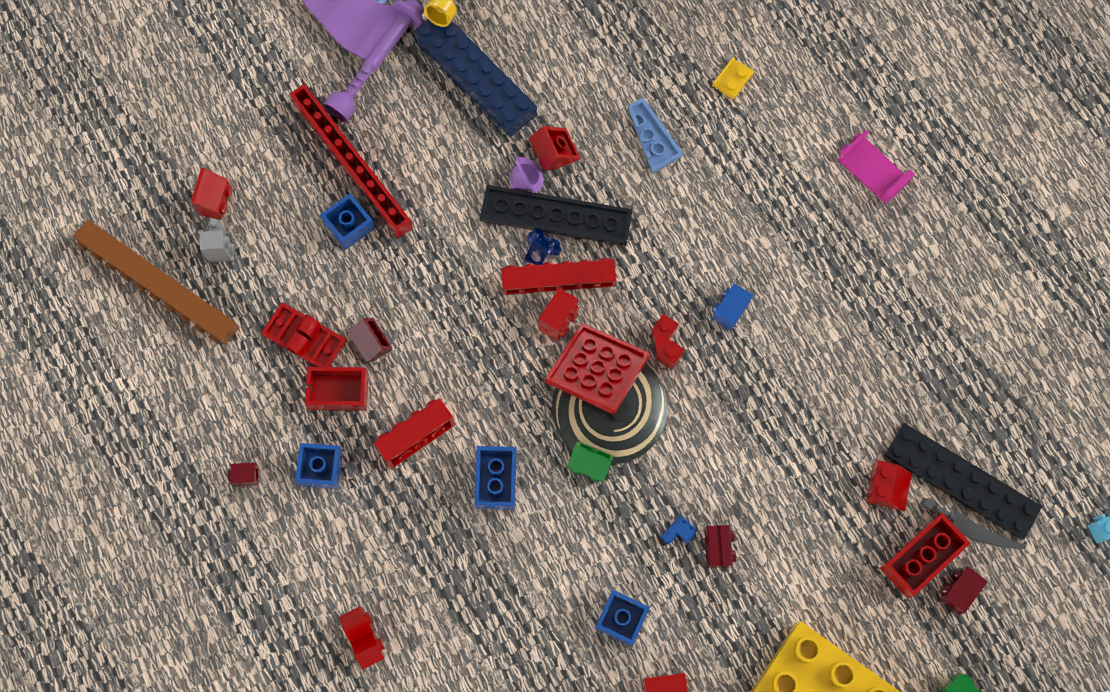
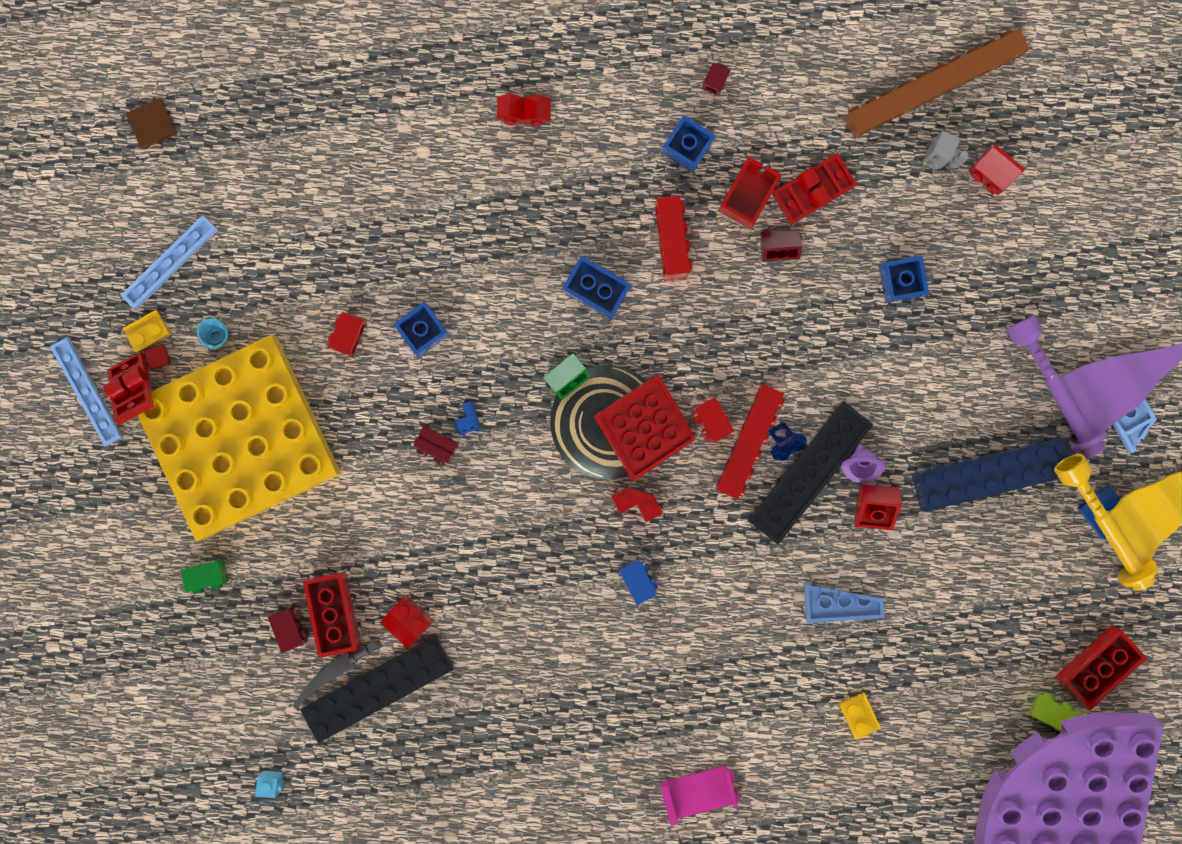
camera: 120 degrees right, 15 degrees up
(351, 161) = (964, 312): red brick -> none

